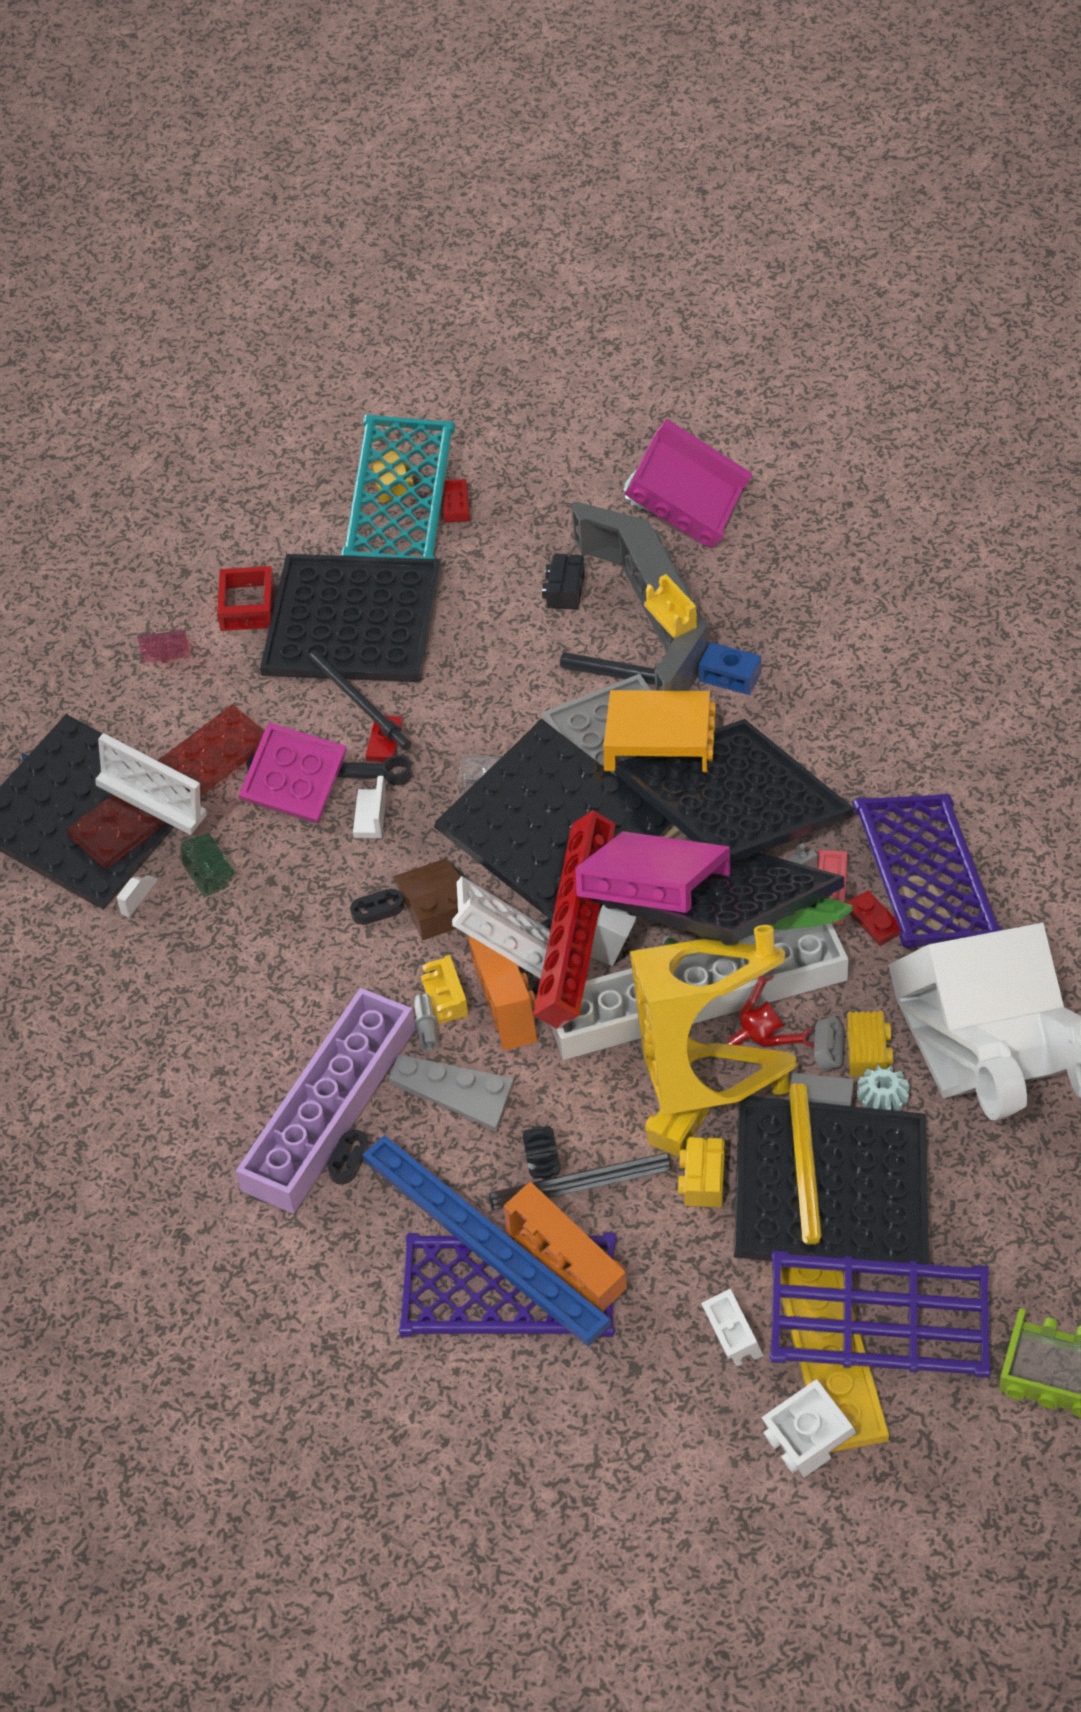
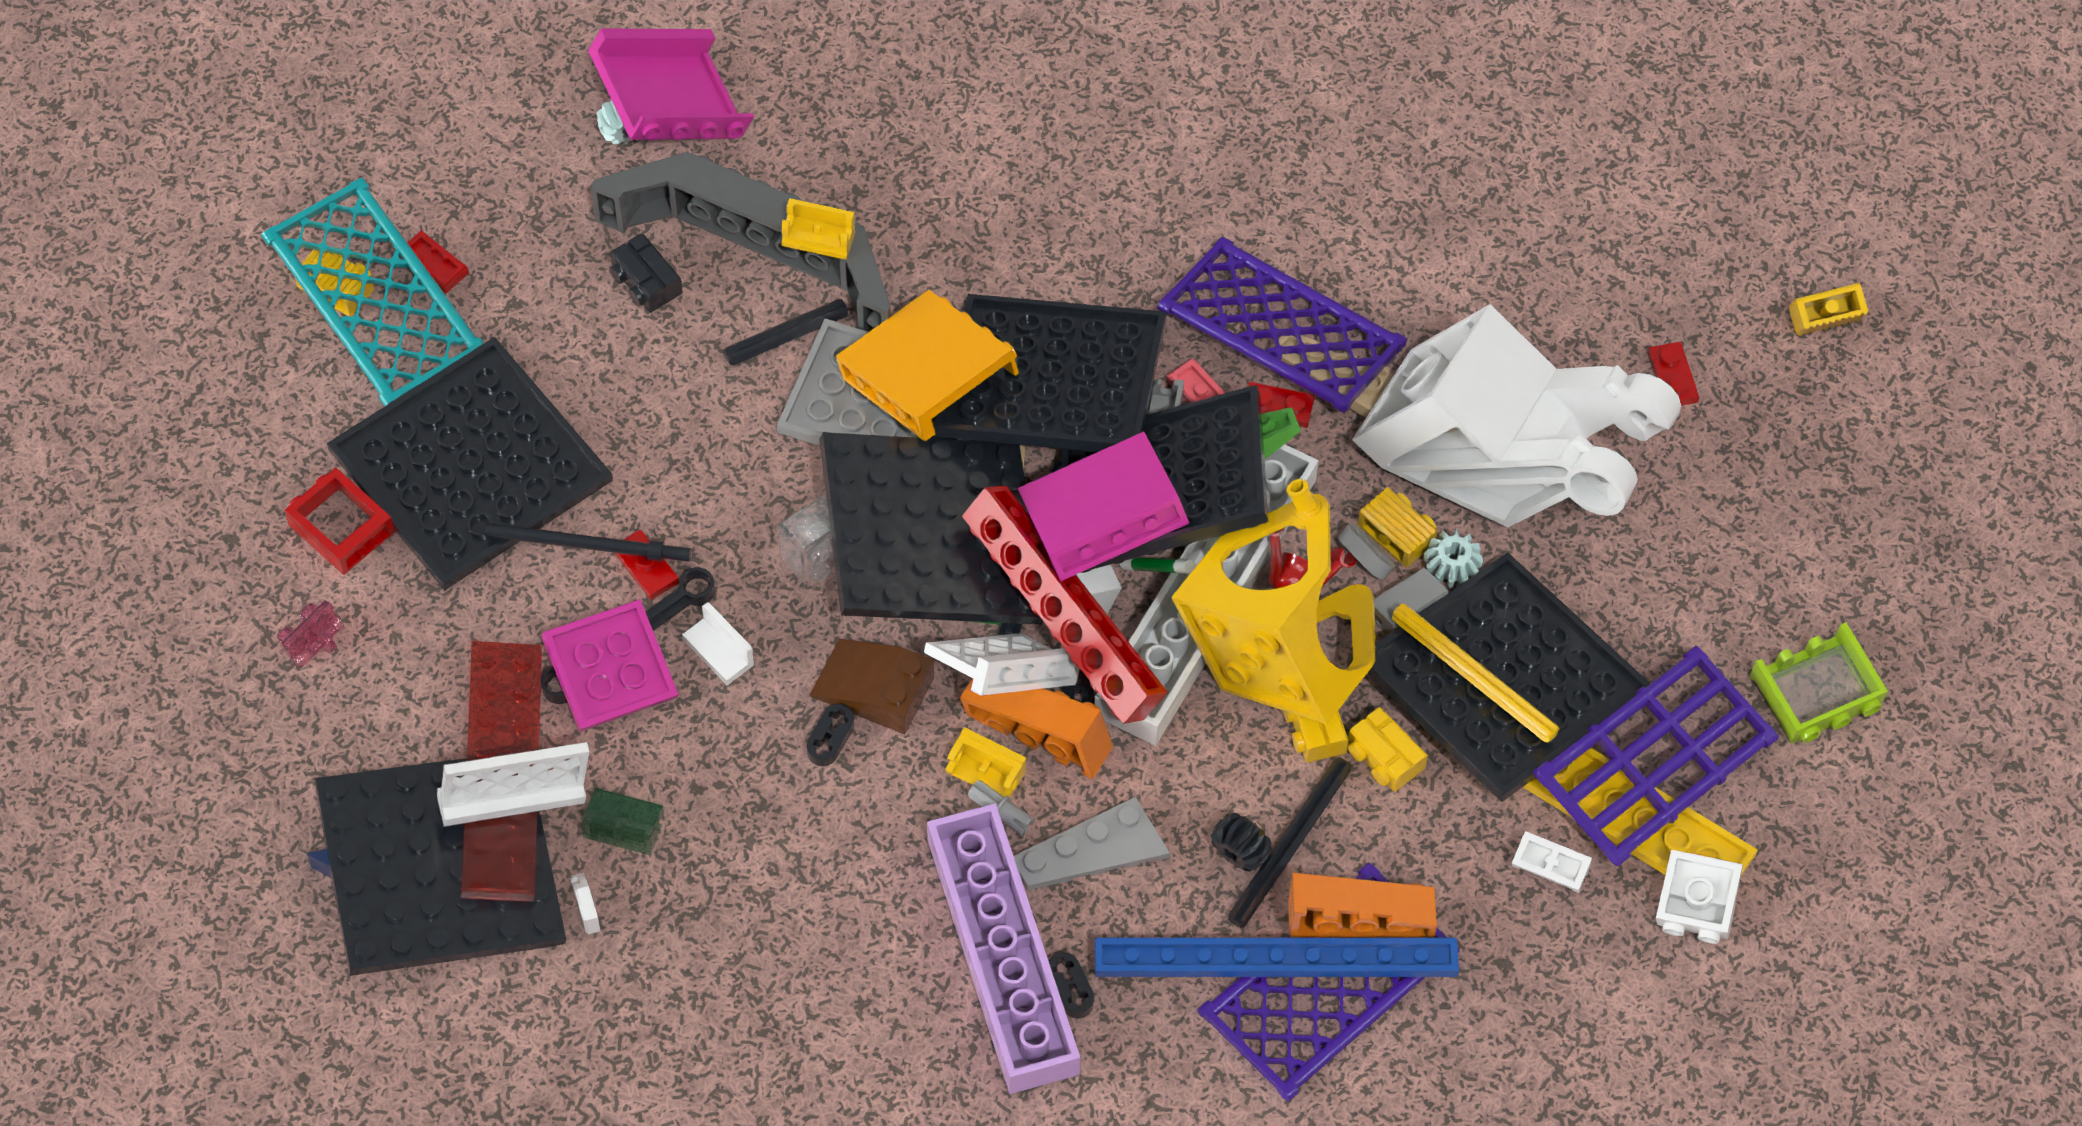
camera: 50 degrees left, 10 degrees up
(730, 668) = (919, 255): blue brick -> none

